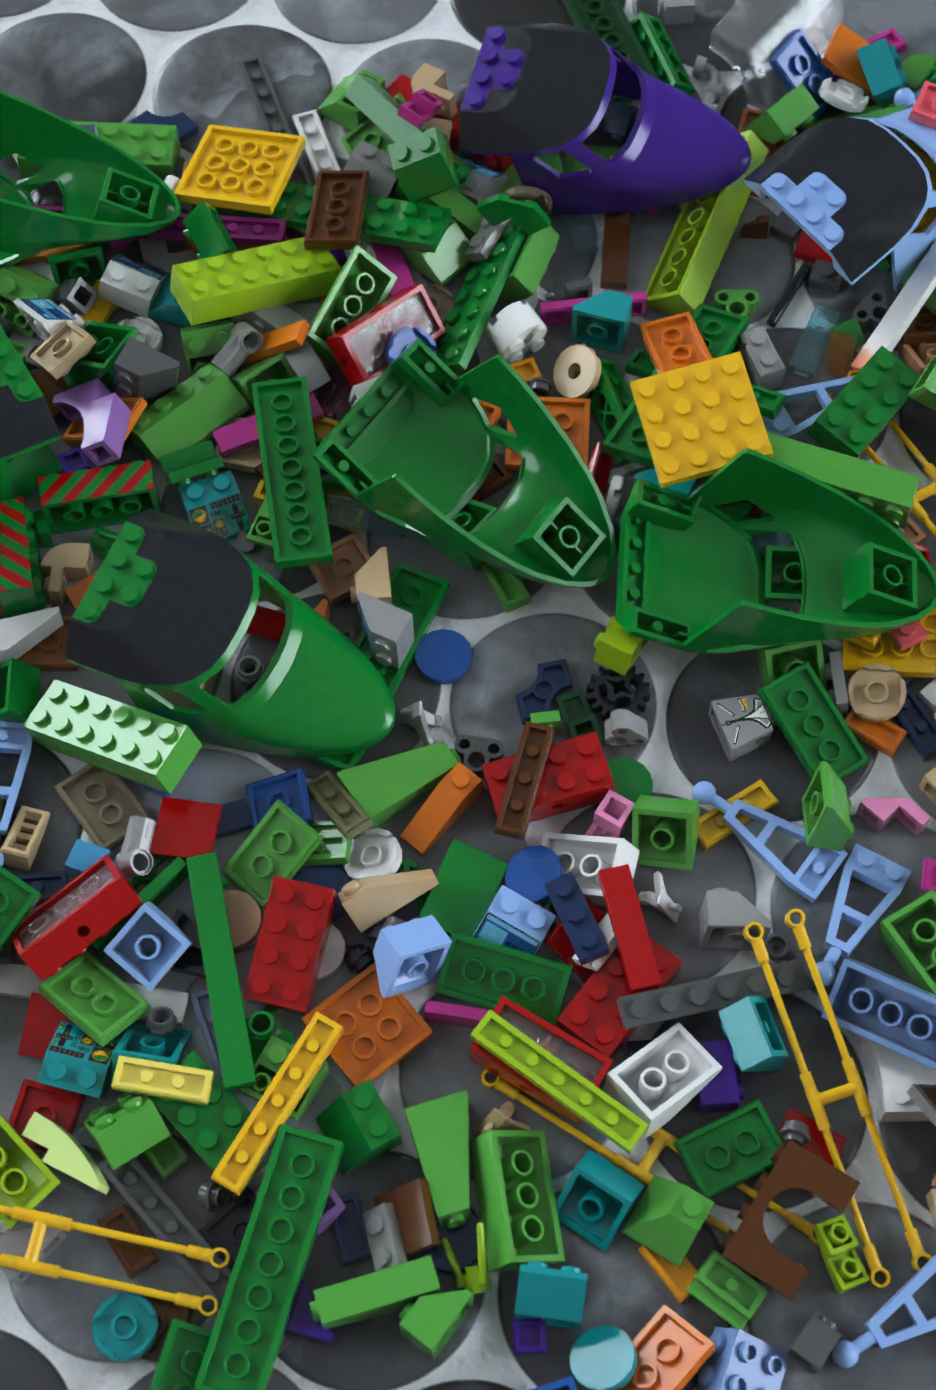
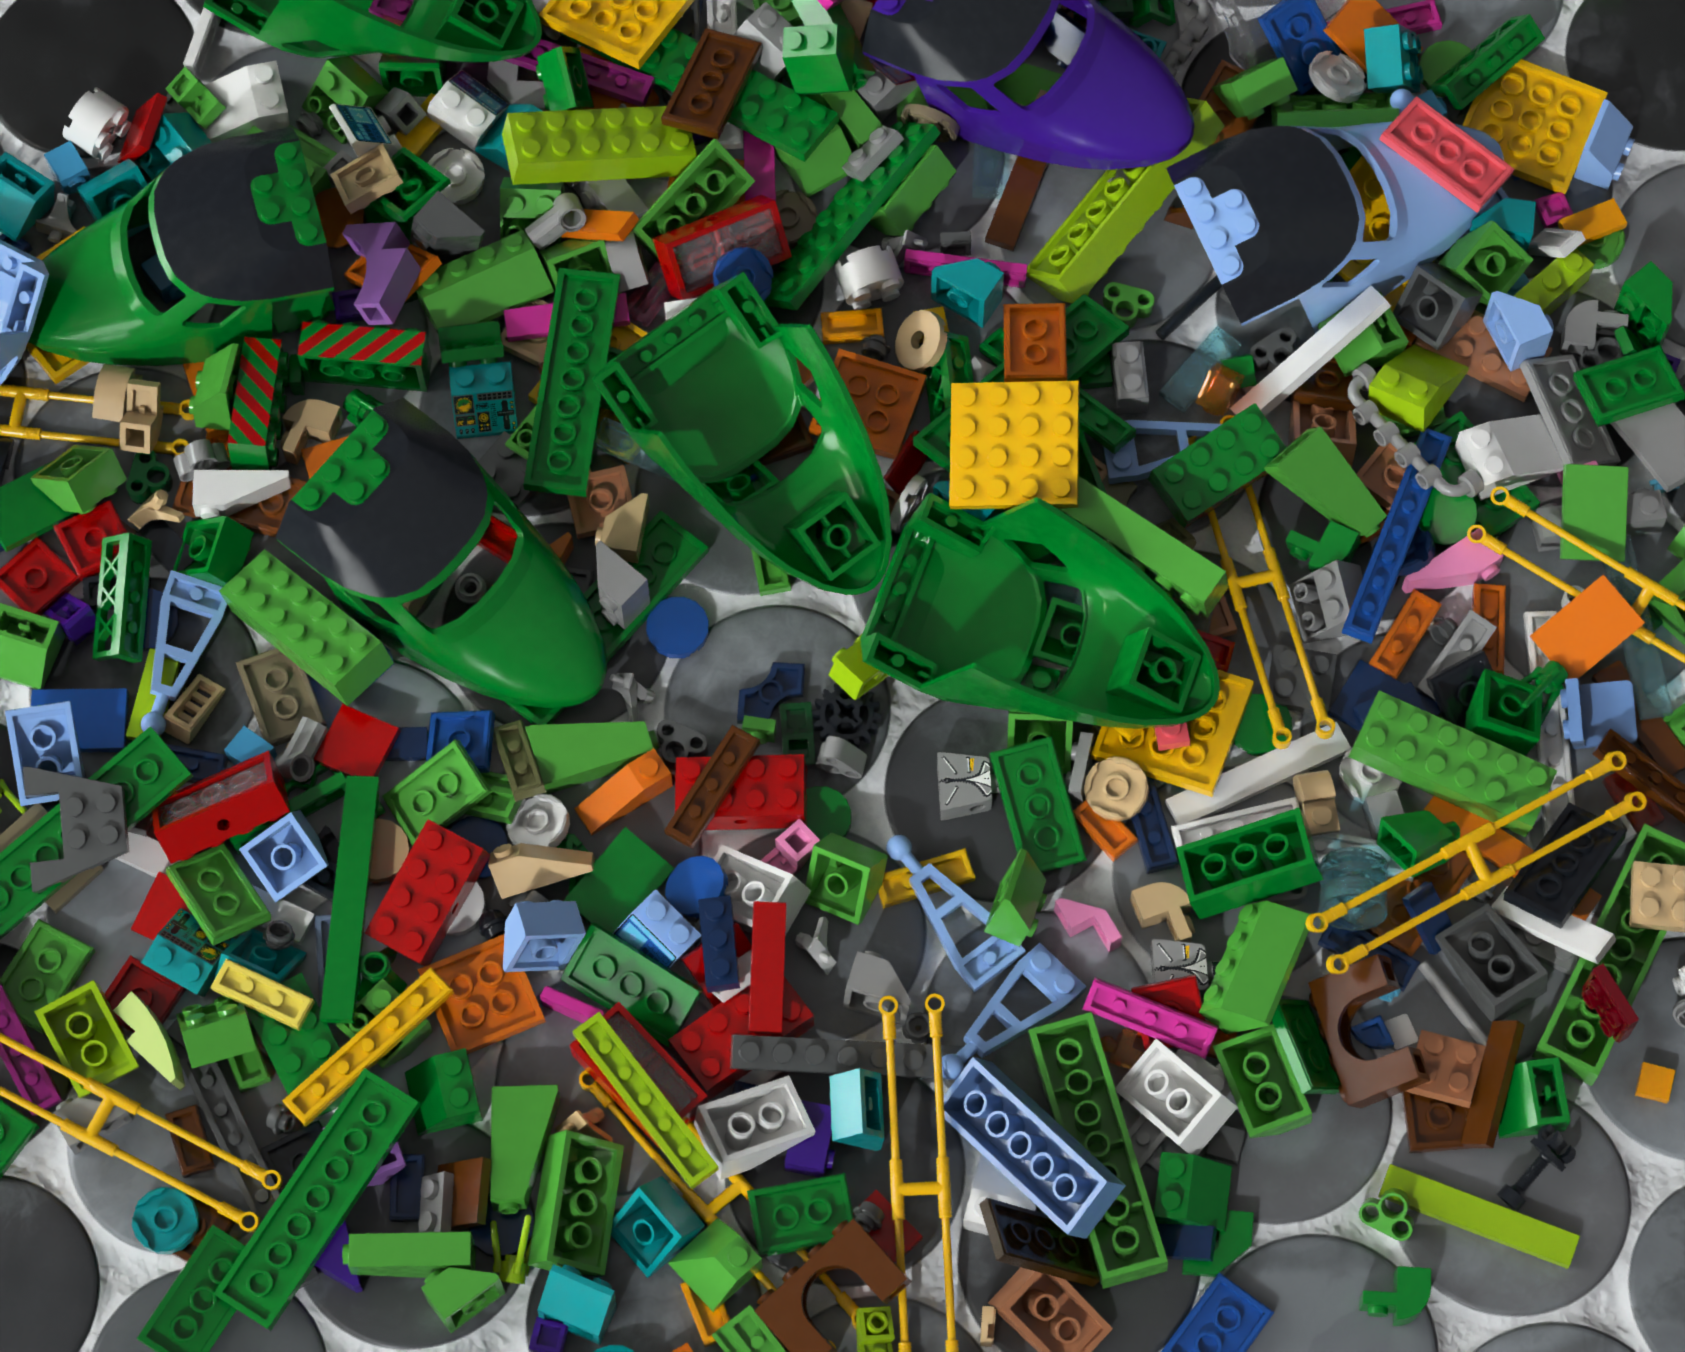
camera: 15 degrees right, 5 degrees up
(502, 208) = (918, 145): green tile -> none

